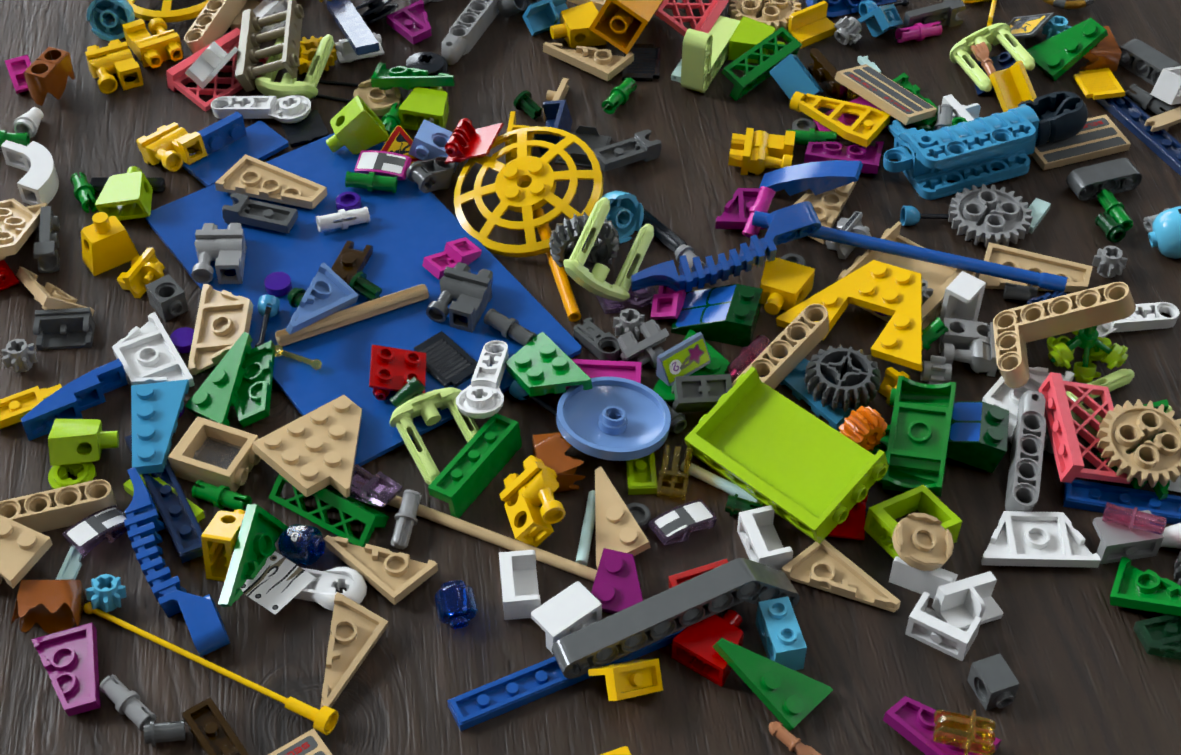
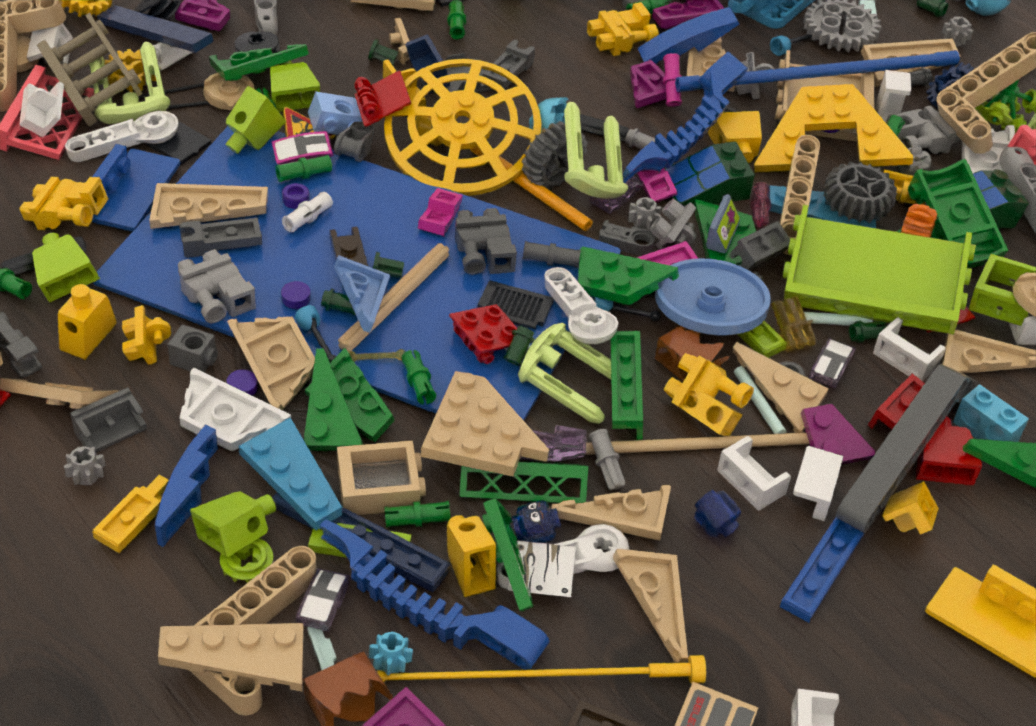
camera: 35 degrees left, 0 degrees up
(311, 387) = (418, 377): none -> green pin

